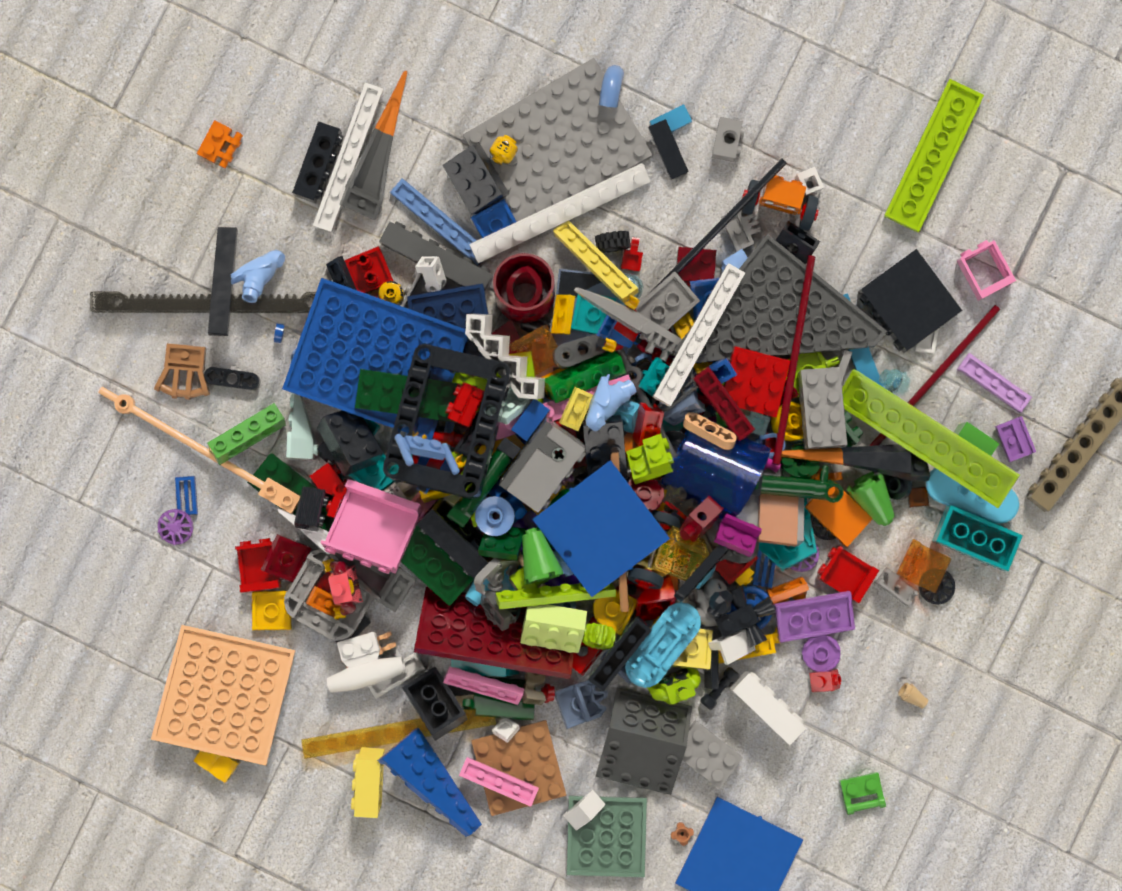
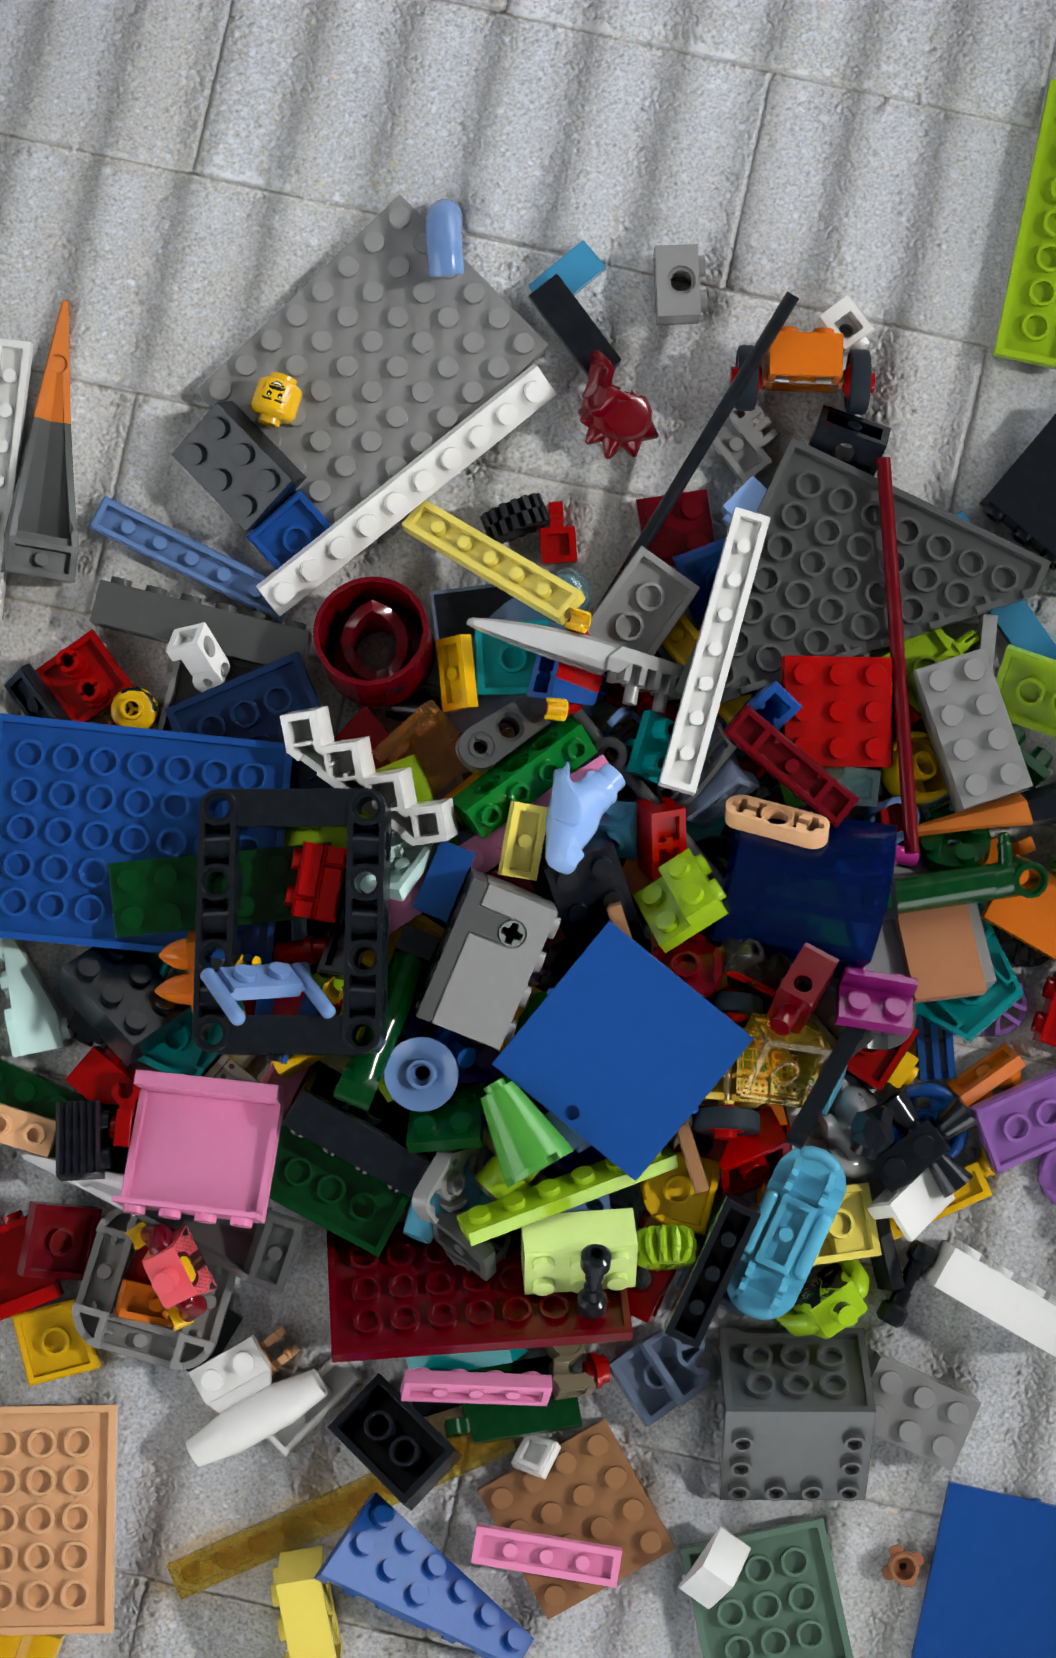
camera: 15 degrees left, 0 degrees up
(385, 425) = (179, 955): none -> orange tile
(560, 633) = (595, 1264): none -> black piece
(677, 200) = (613, 415): none -> dark red head

